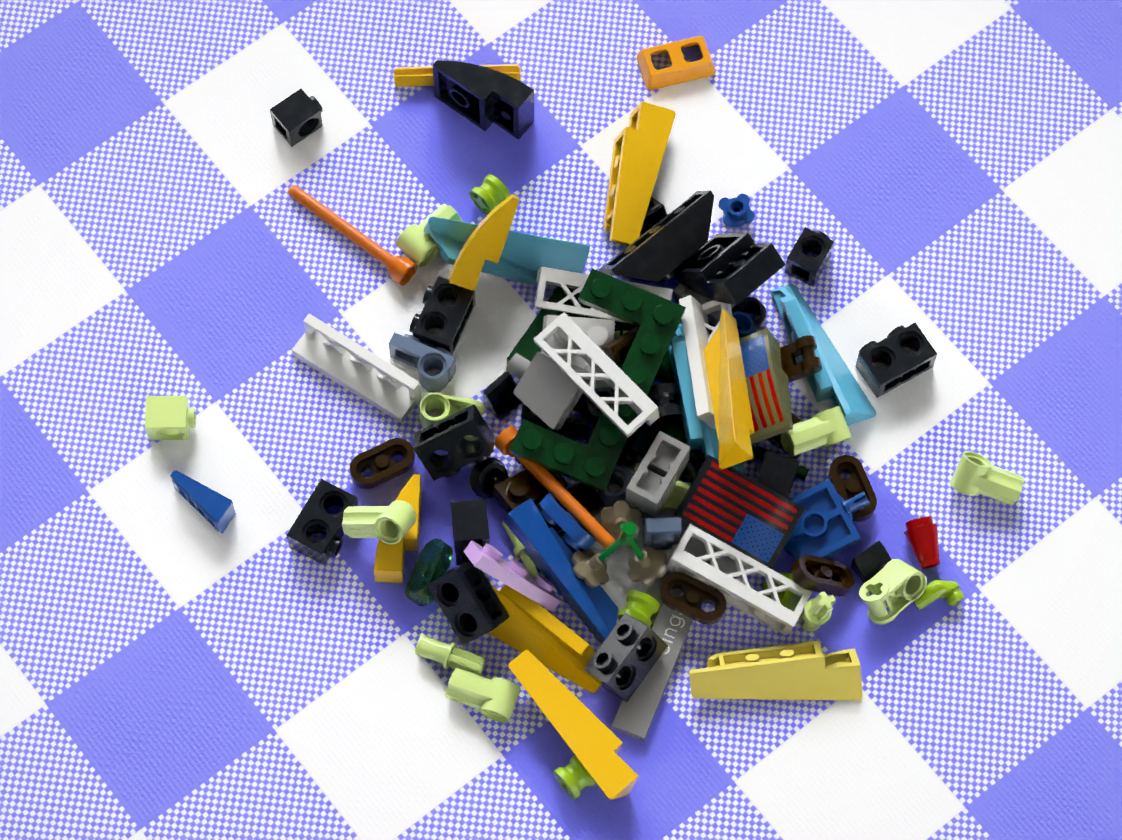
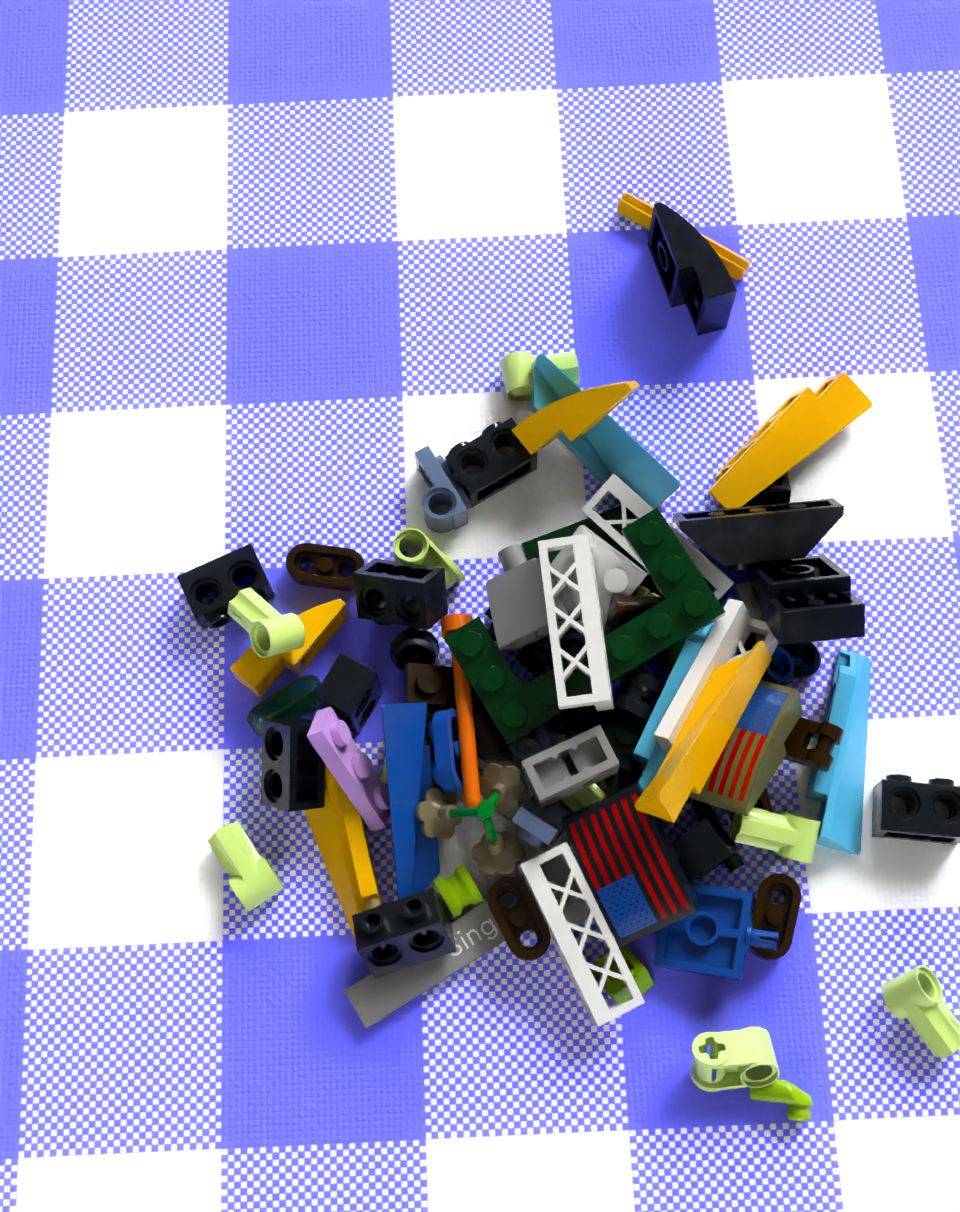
camera: 40 degrees right, 5 degrees up
(169, 418) = (166, 391): yellowish green brick -> none
(210, 504) = (138, 503): blue slope -> none
(297, 117) = (500, 182): black brick -> none
(357, 369) = (371, 461): white fence -> none
(400, 268) = (486, 388): orange piece -> none
(449, 655) = (244, 803): yellowish green axle -> none
(489, 194) = (626, 368): lime wheel -> none
(500, 397) = (480, 572): black slope -> none
(573, 778) = (266, 1018): lime wheel -> none
(580, 729) = (300, 970): yellow wedge -> none
(680, 70) = (910, 367): light orange piece -> none
(736, 219) = (864, 555): blue plate -> none
(780, 673) = (554, 1062): light yellow wedge -> none
(808, 268) = (894, 652): black brick -> none
(817, 612) = (635, 1028): yellowish green axle -> none
(822, 575) = (671, 990): dark brown plate -> none
(870, 561) = (735, 1012): black slope -> none
(923, 540) = (808, 1029): red cone -> none

